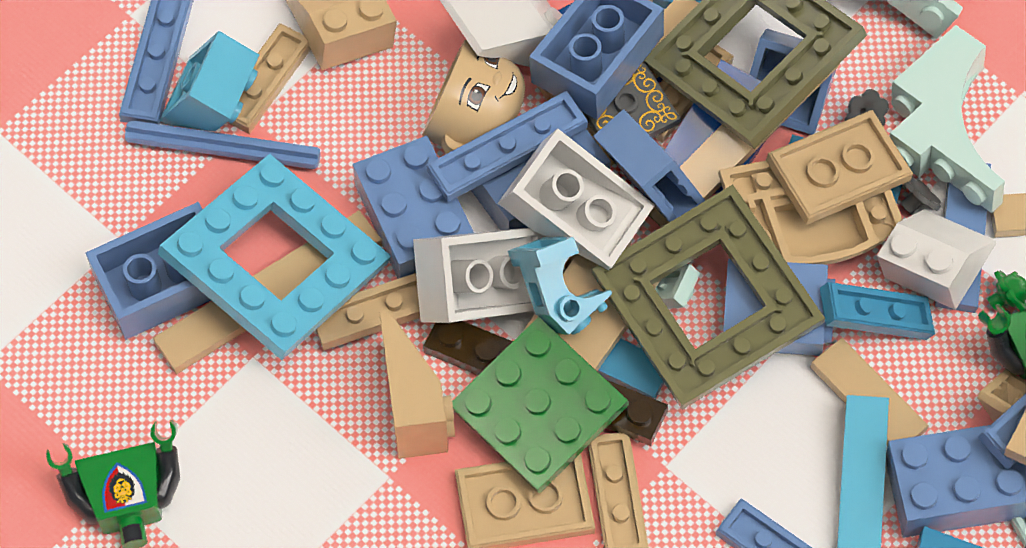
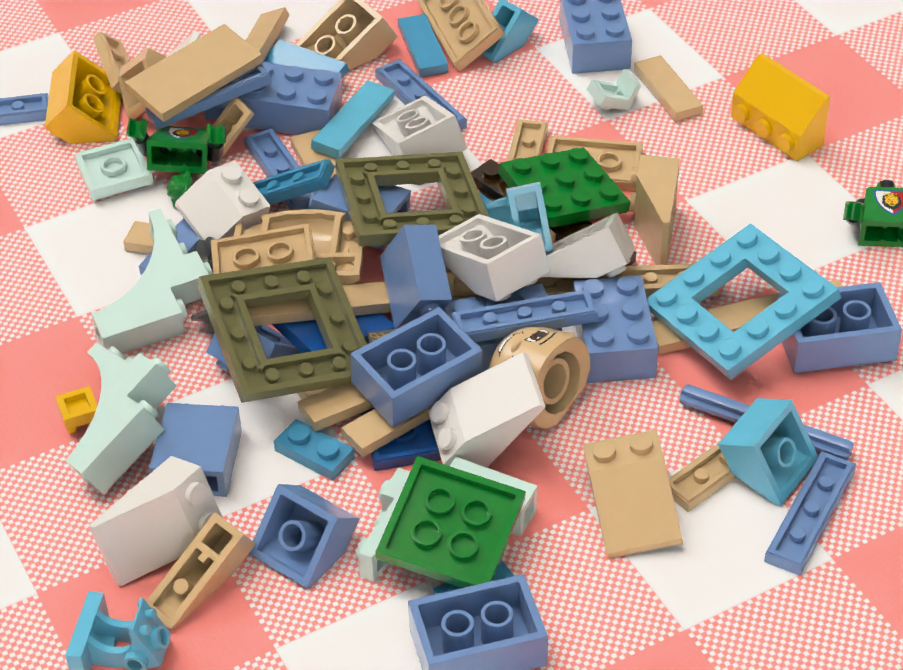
camera: 160 degrees left, 20 degrees down
(764, 464) = (420, 129): none -> white slope
(916, 379) = (275, 159): none -> medium blue tile

